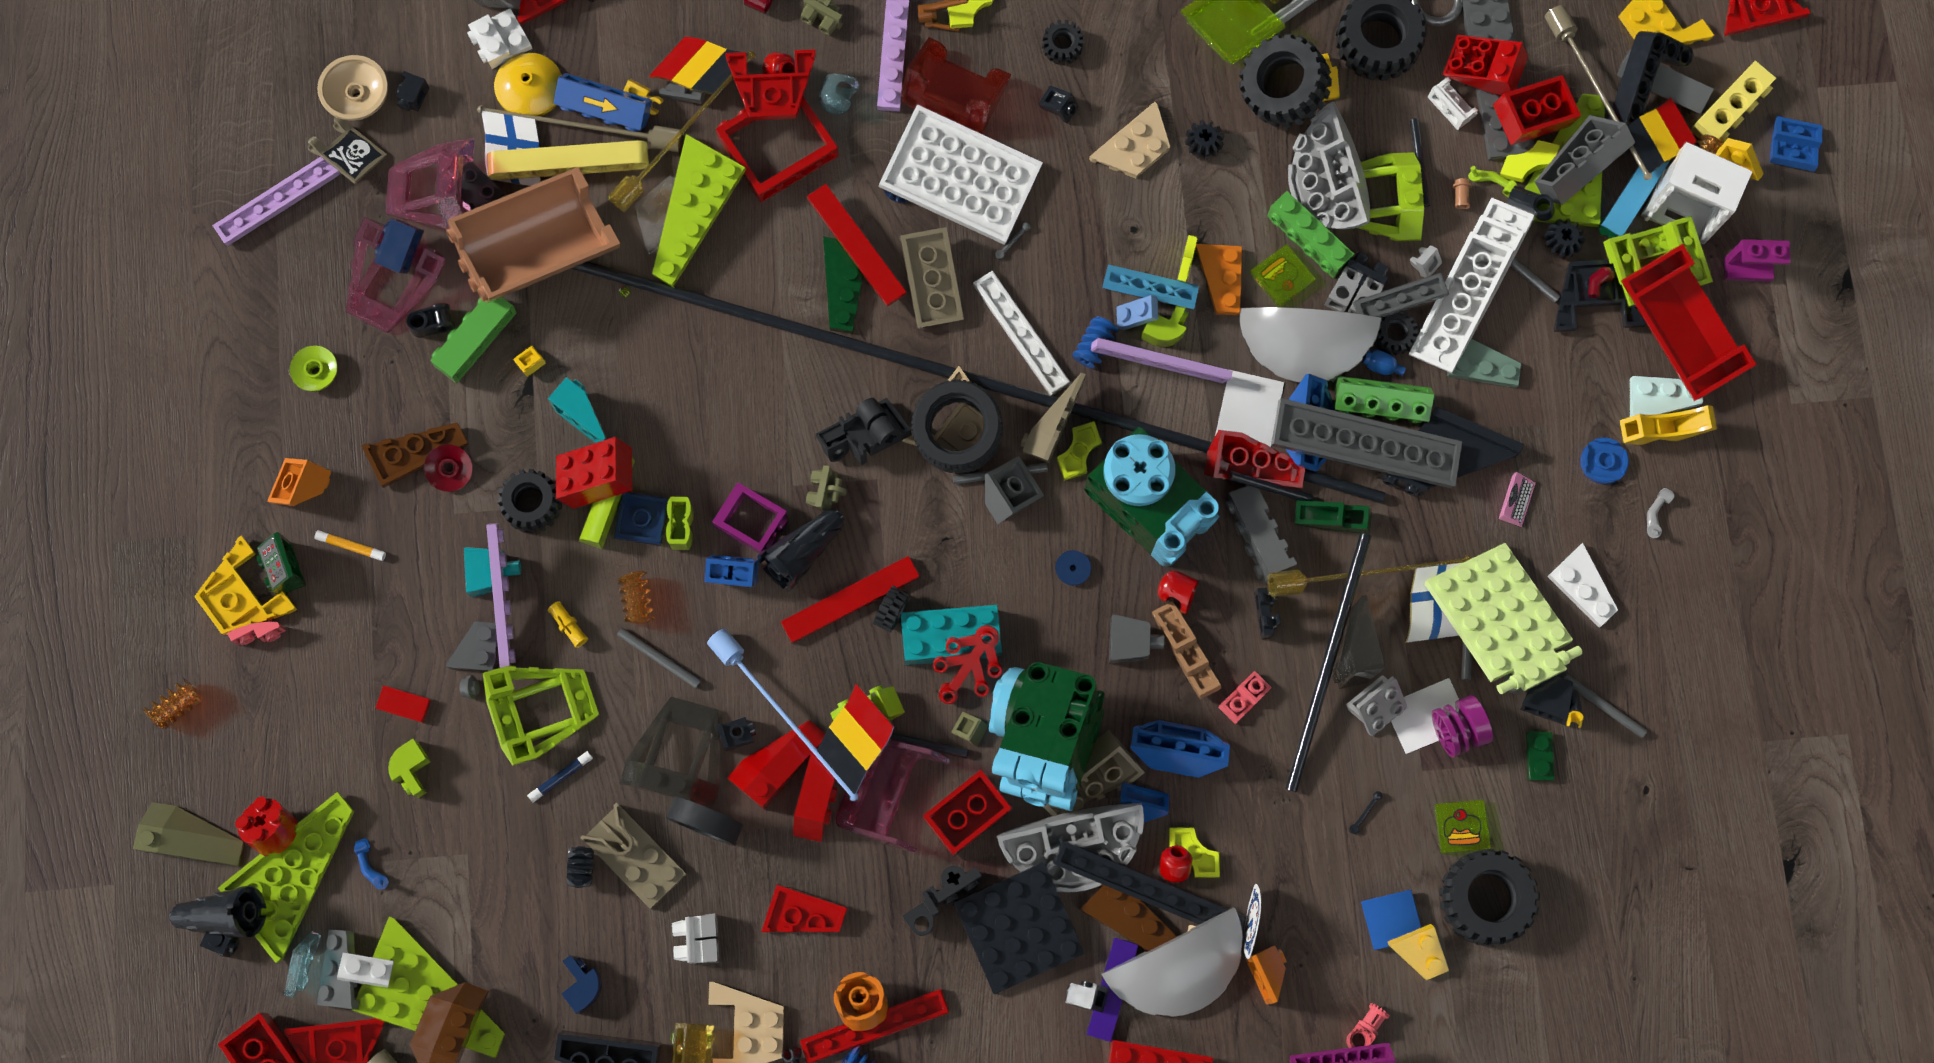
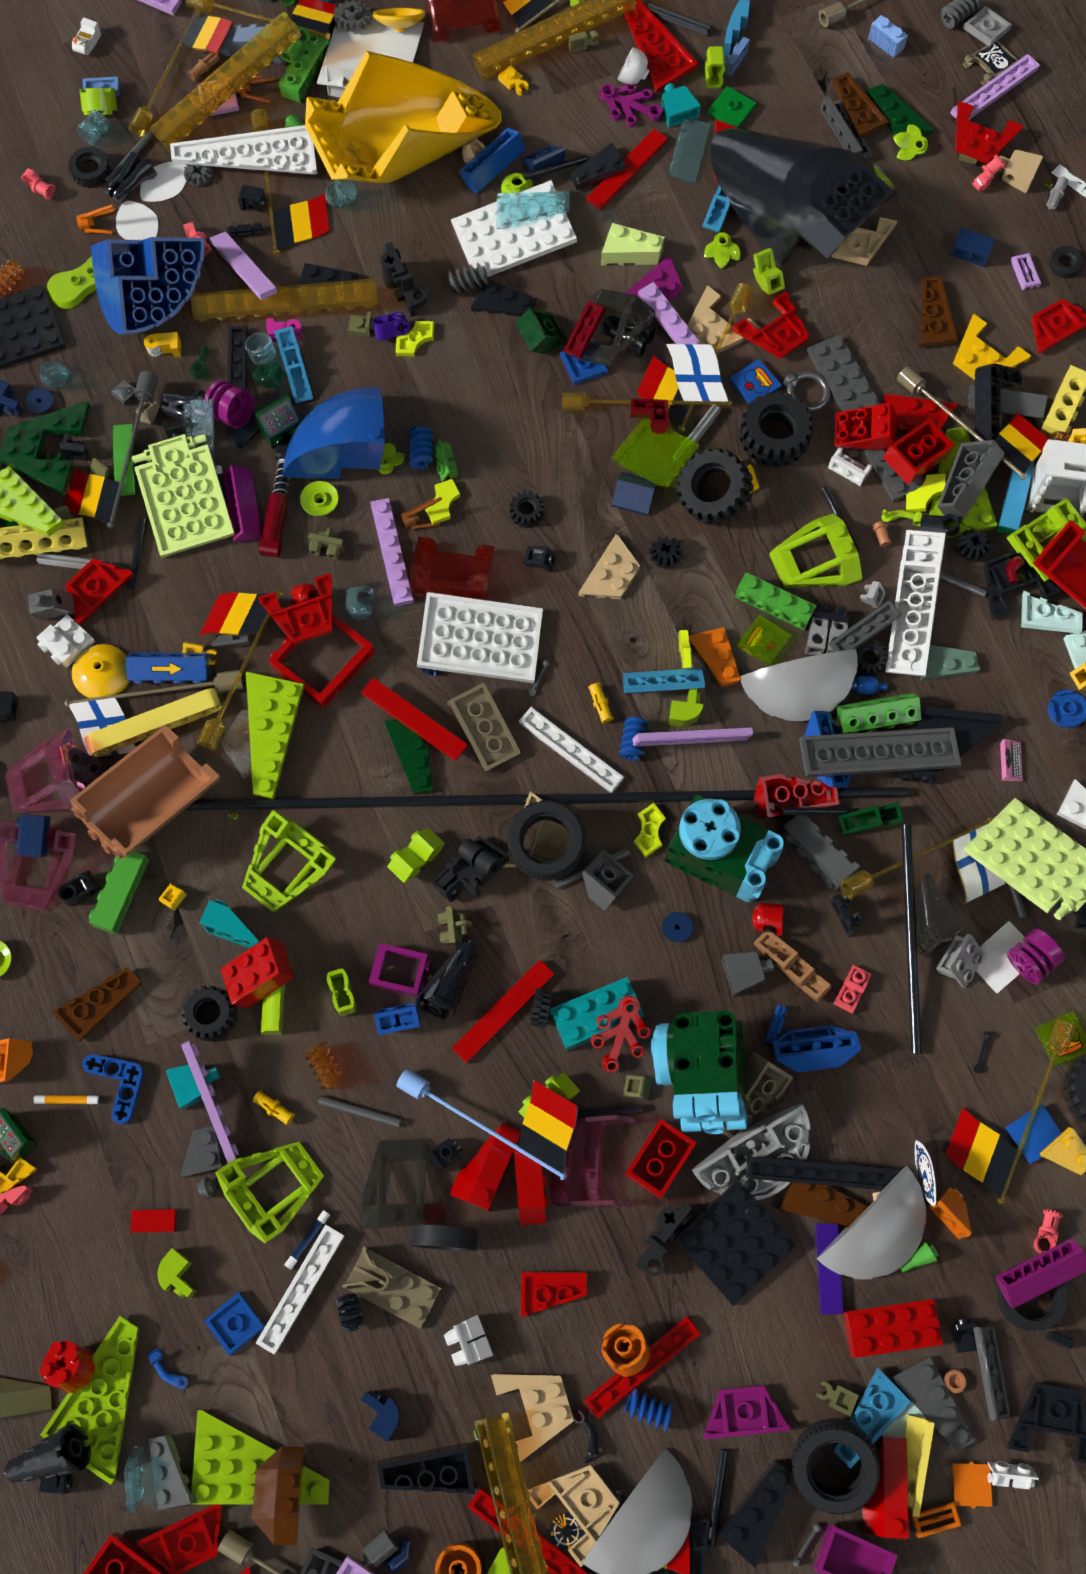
camera: 15 degrees left, 5 degrees down
(365, 970) = (192, 1465): white plate -> none
(417, 538) = (122, 1075): none -> blue beam
(442, 478) = (135, 1017): dark red dish -> none
(456, 839) = (234, 1323): none -> blue tile
(535, 826) = (300, 1289): none -> white plate
(641, 518) = (307, 998): dark blue tile -> none
(689, 341) = (289, 832): none -> lime windscreen
(819, 392) = (423, 848): none -> lime brick
(1048, 430) = (620, 822): dark tan wedge -> none
(1072, 290) = (600, 703): none -> yellow pin
(1087, 996) = (811, 1281): brick -> none
(1137, 312) = (659, 704): medium blue plate -> none
(1146, 709) = (776, 1024): none -> blue axle
(1154, 803) = (811, 1100): blue slope -> none
(1175, 864) = (845, 1145): red head -> none
(1191, 60) = (634, 493): none -> dark blue slope
(1205, 862) = (847, 1126): neon yellow tile -> none
(1220, 1009) = (923, 1256): none -> bright green cone
(1250, 406) = (774, 751): white sticker -> none
(1328, 173) = (773, 548): light grey brick -> none
(1329, 922) = (985, 1152): none -> flag
(1552, 60) = (915, 411): none -> red wing
(1619, 347) = (1047, 616): none -> light aqua wing

